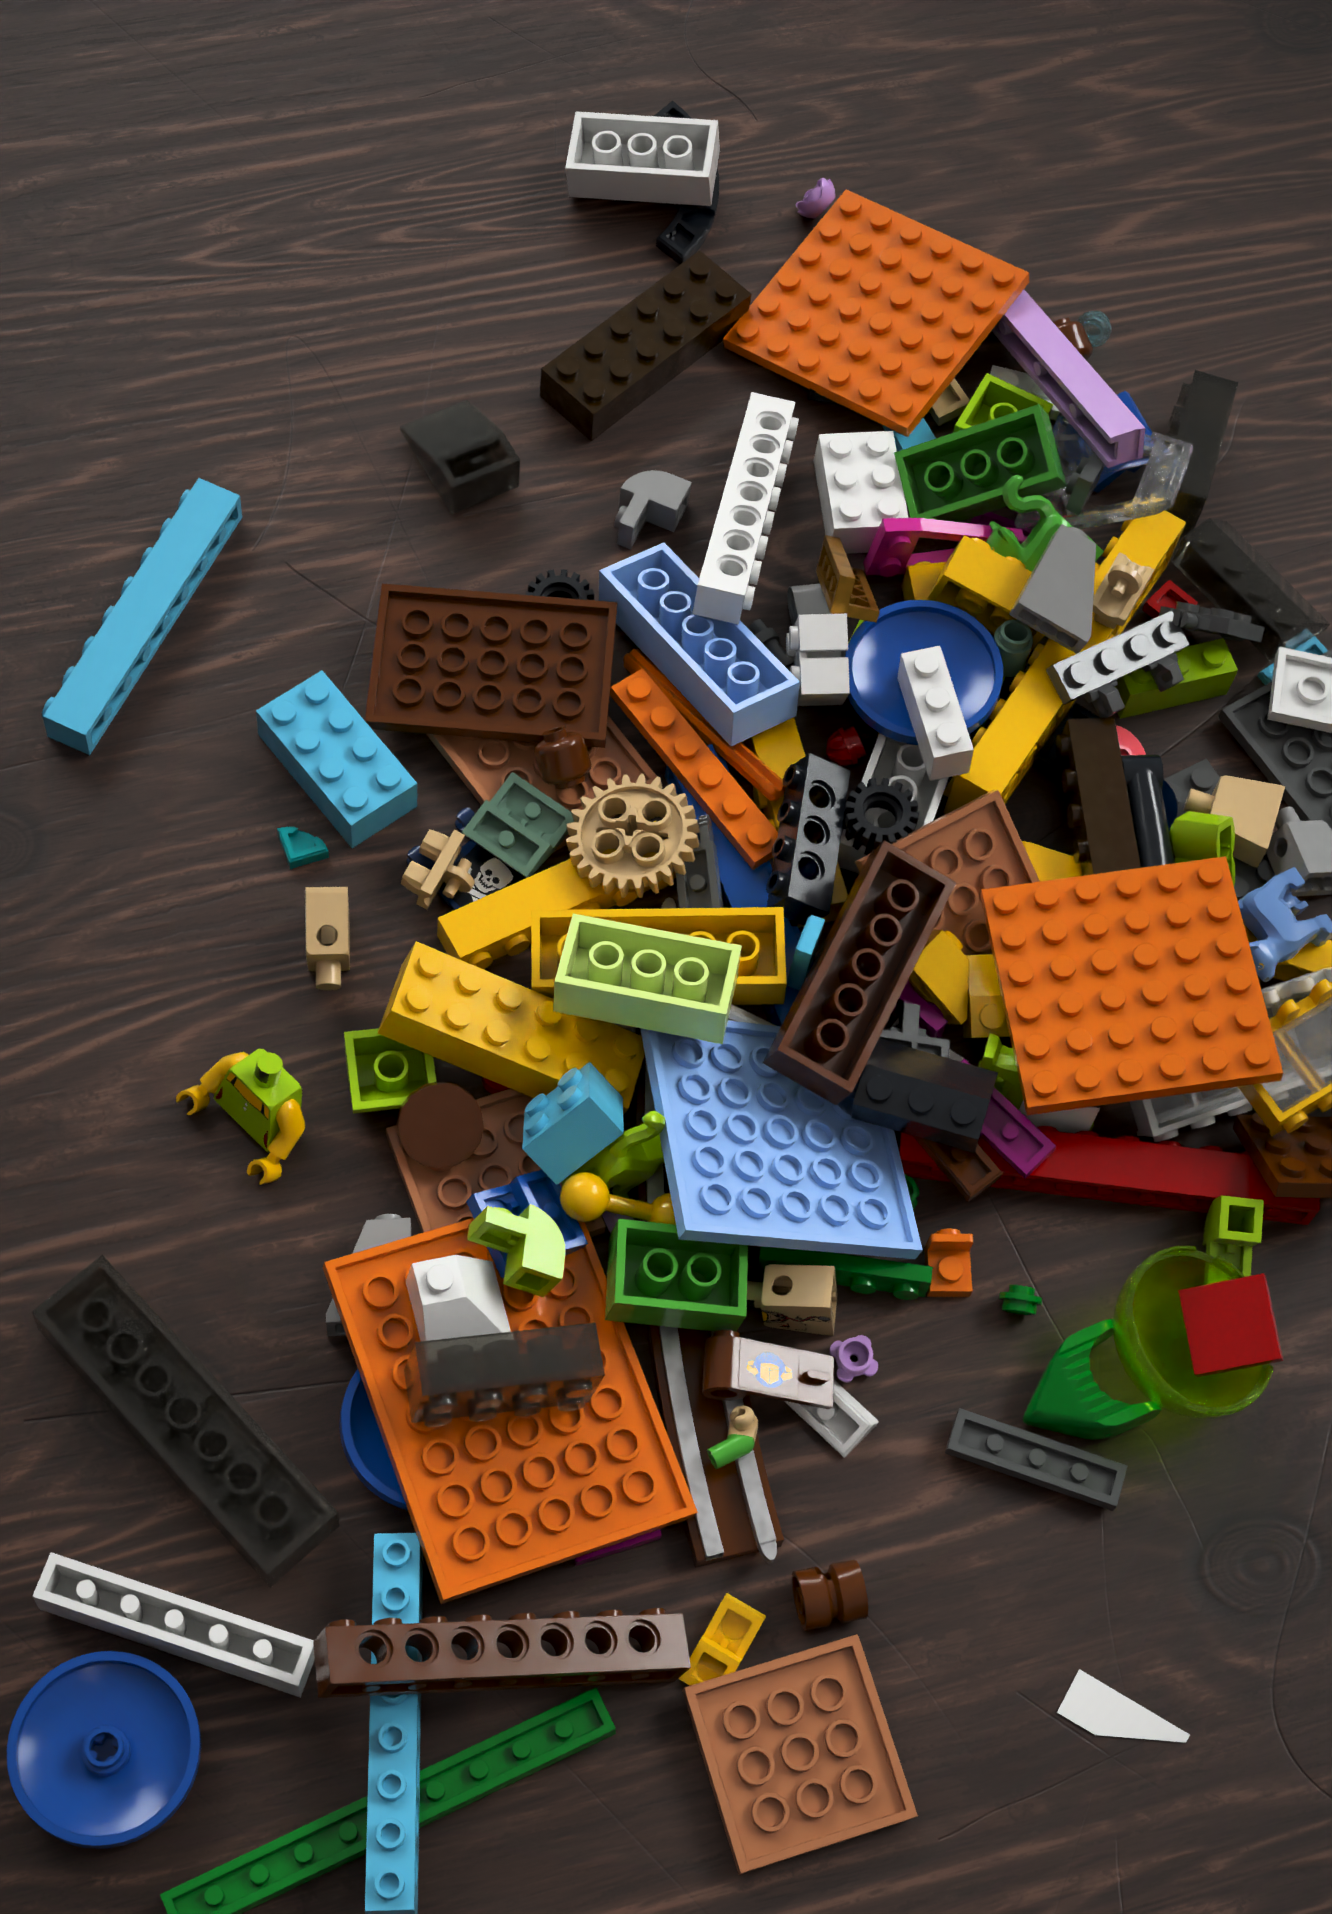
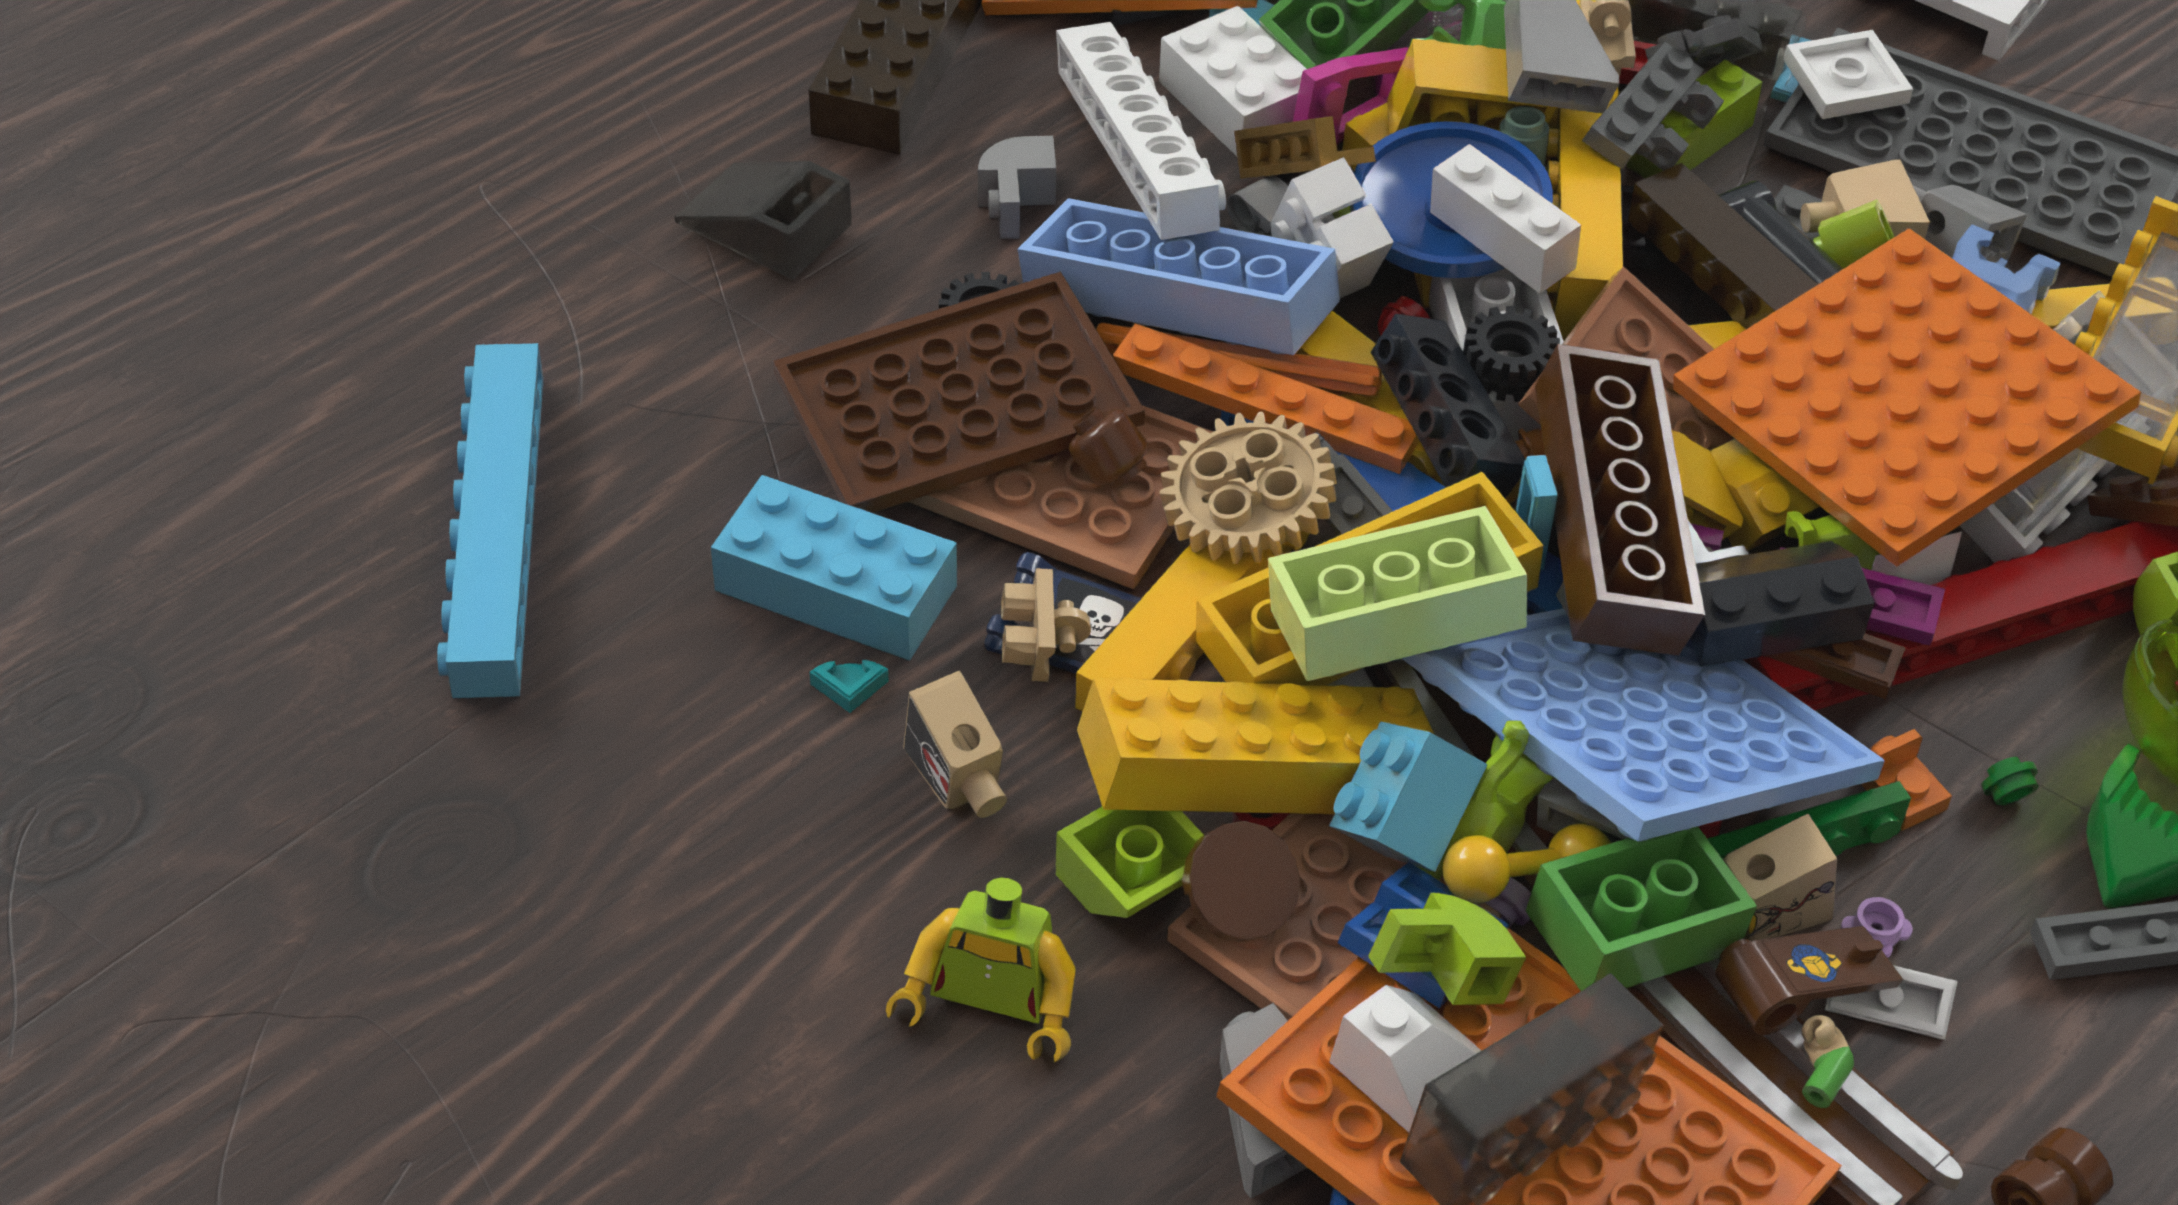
camera: 20 degrees left, 15 degrees down
(519, 825) = (1103, 539): sand green slope -> none

